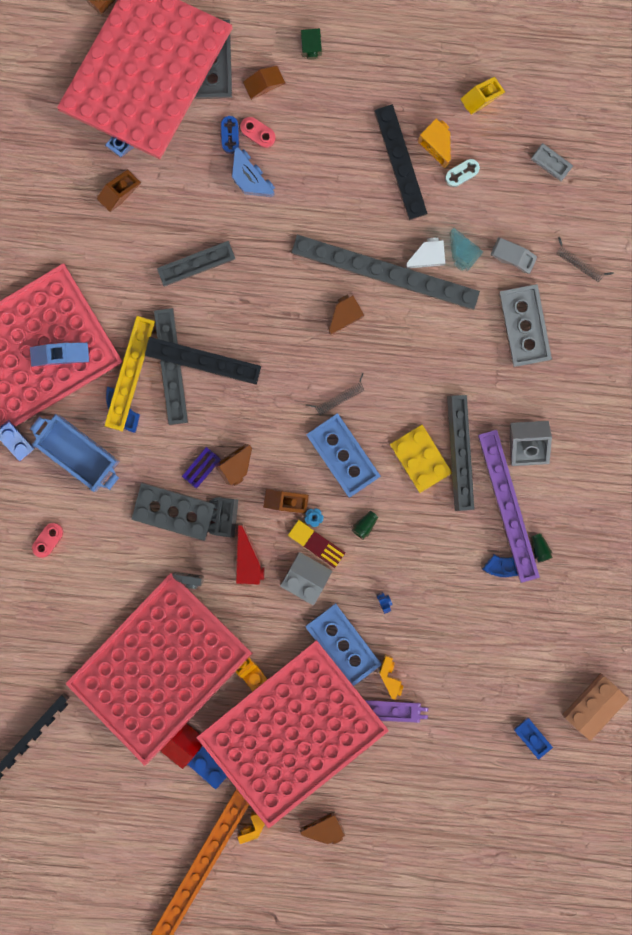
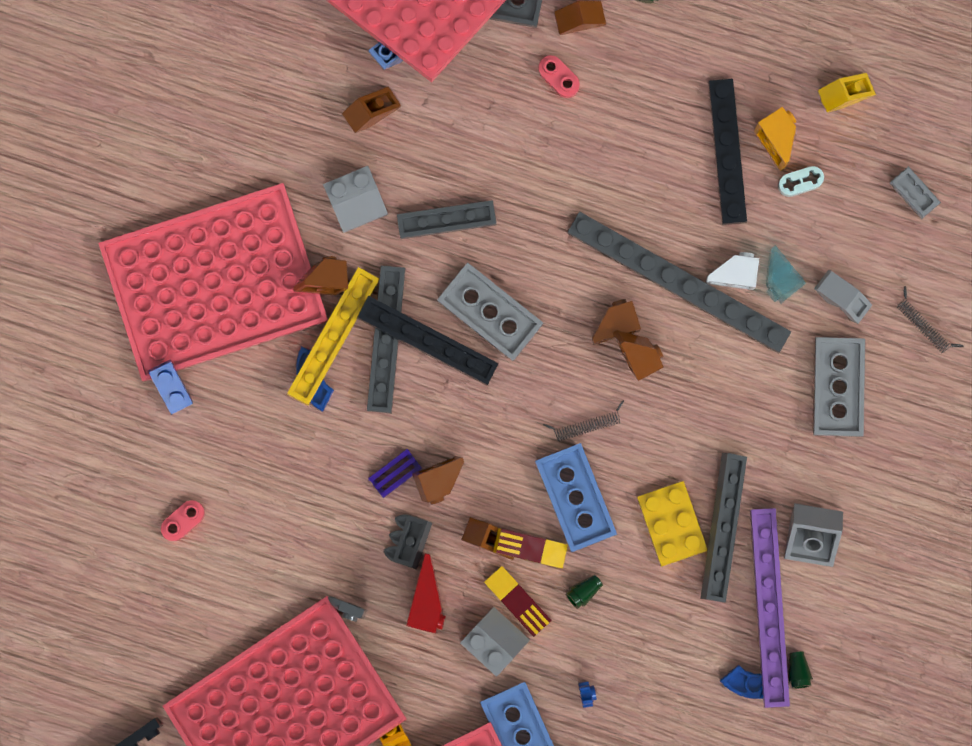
camera: 20 degrees right, 5 degrees down
(59, 354) = (252, 292): medium blue slope -> none
(75, 452) = (243, 419): medium blue container -> none
(112, 330) = (325, 277): none -> dark orange slope
(122, 263) = (355, 199): none -> light grey slope
(162, 518) = (332, 527): dark grey plate -> none
(224, 134) = (518, 70): blue beam -> none
(245, 340) = (473, 316): none -> light grey plate
(249, 176) = (536, 128): medium blue slope -> none
(314, 522) = (521, 574): dark azure plate -> none
(317, 502) = (530, 548): none -> tile
(368, 335) = (639, 354): none -> dark orange slope

